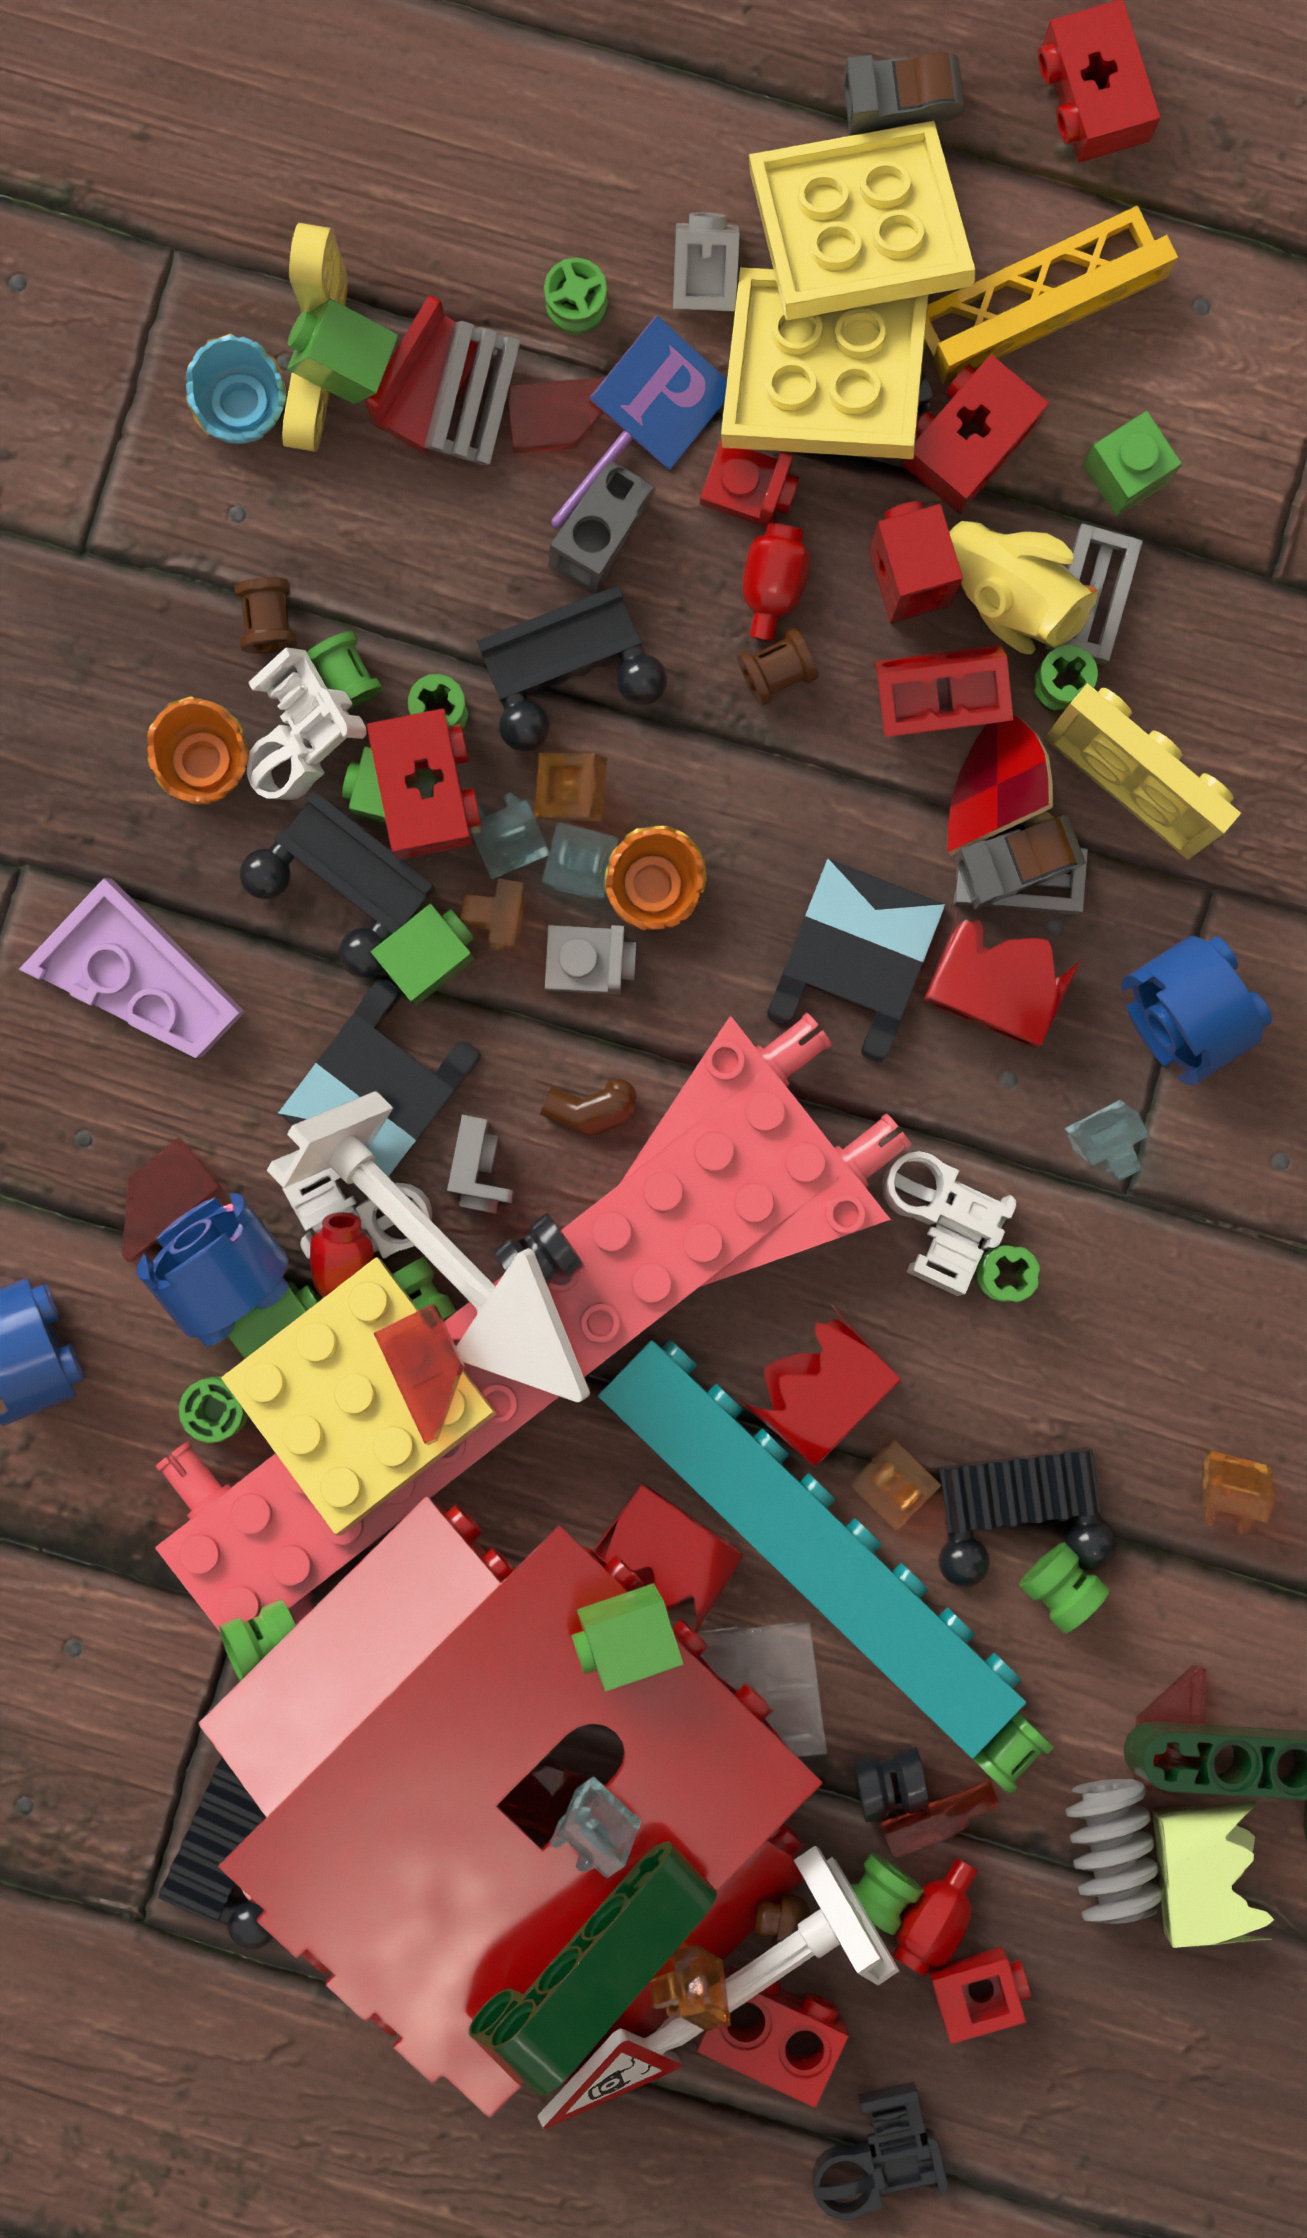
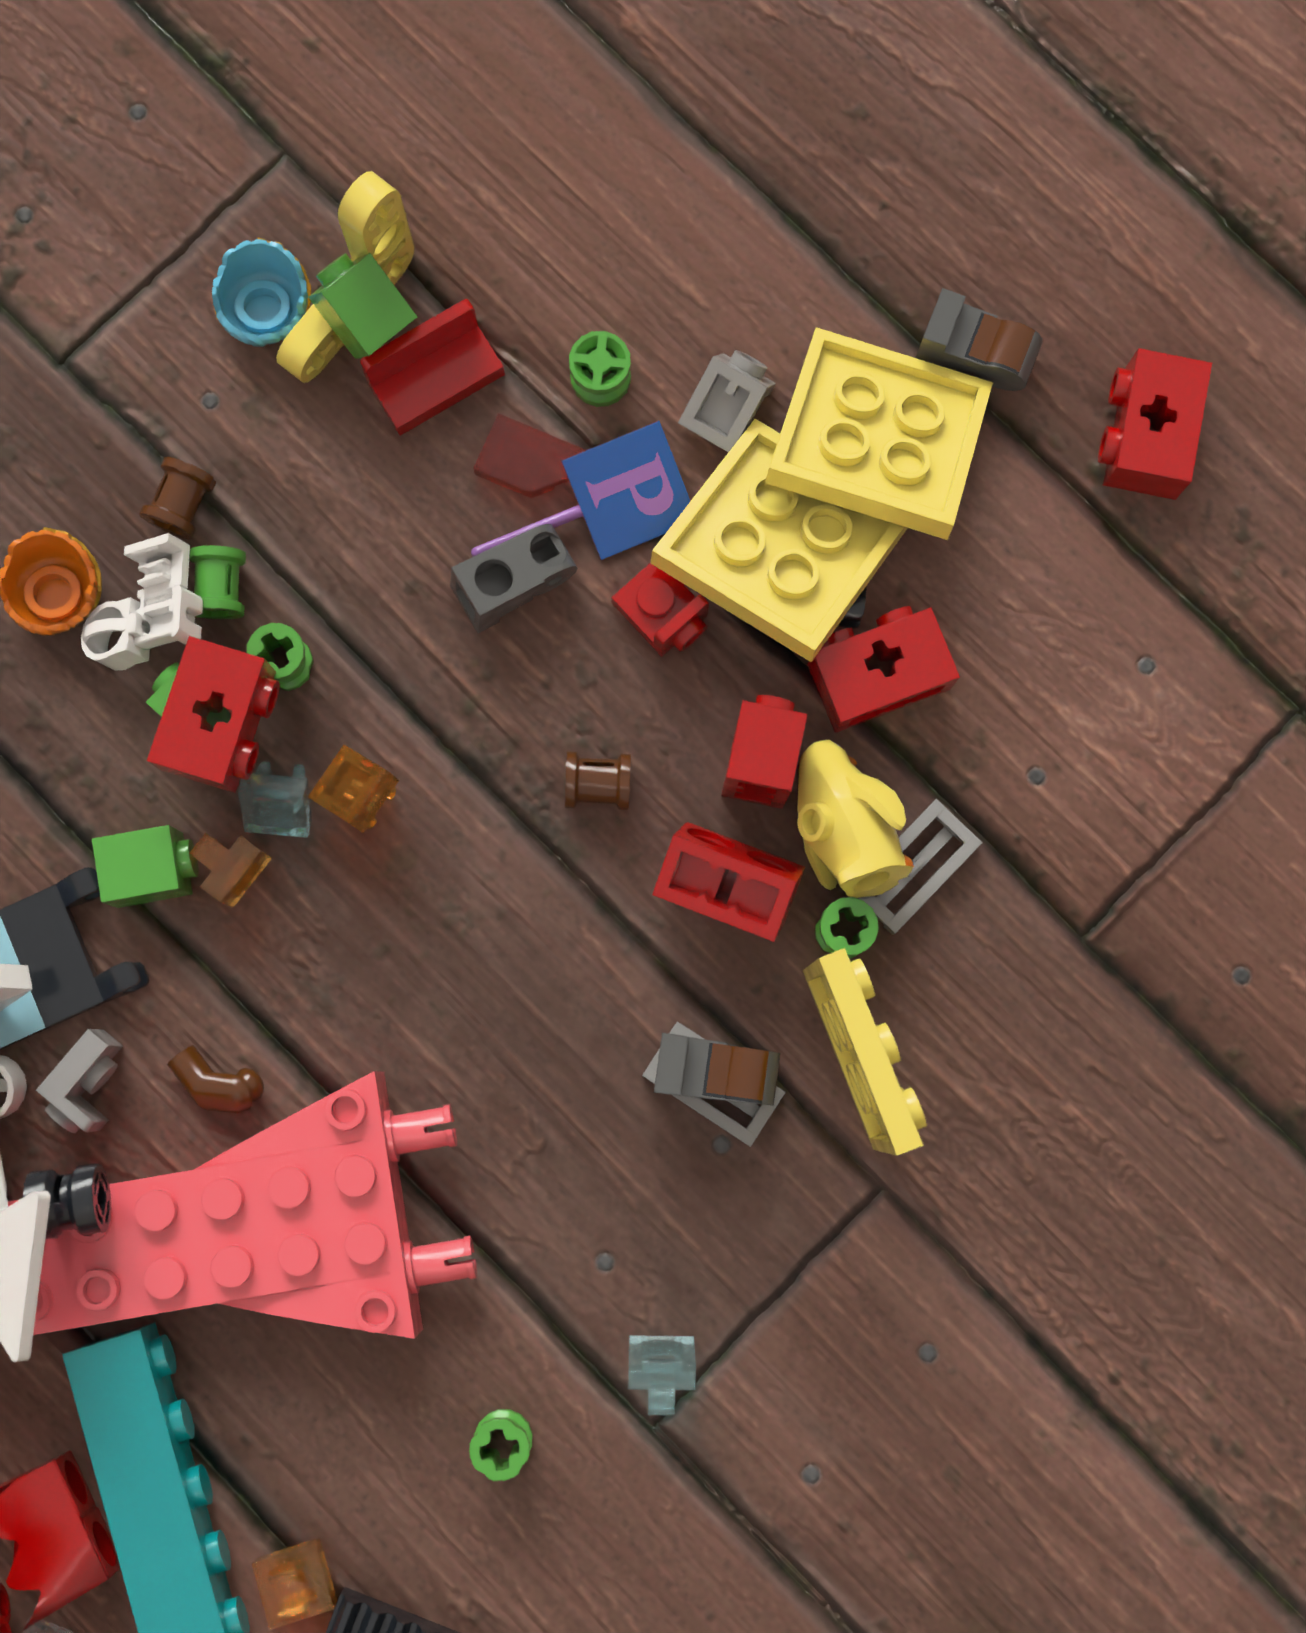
camera: 25 degrees right, 5 degrees down
(350, 864) = (120, 737): black gear -> none
(495, 400) = (481, 420): light grey tile -> none
(565, 646) = (415, 661): black gear -> none
(579, 861) = (331, 858): clear light blue tile -> none
(588, 959) = (288, 949): light grey bracket -> none
(655, 877) = (383, 909): orange hair -> none
(774, 577) = (639, 701): red plant -> none
(825, 1393) = (275, 1462): red piece -> none
(861, 946) = (536, 1068): black flag -> none
(959, 1224) = (484, 1374): white piece -> none
(999, 988) = (638, 1176): red piece -> none
(1000, 785) = (735, 994): shield -> none
(1048, 307) = (1009, 595): yellow fence -> none
(1131, 463) = (1007, 769): bright green brick -> none
(1195, 1008) = (802, 1294): blue brick -> none

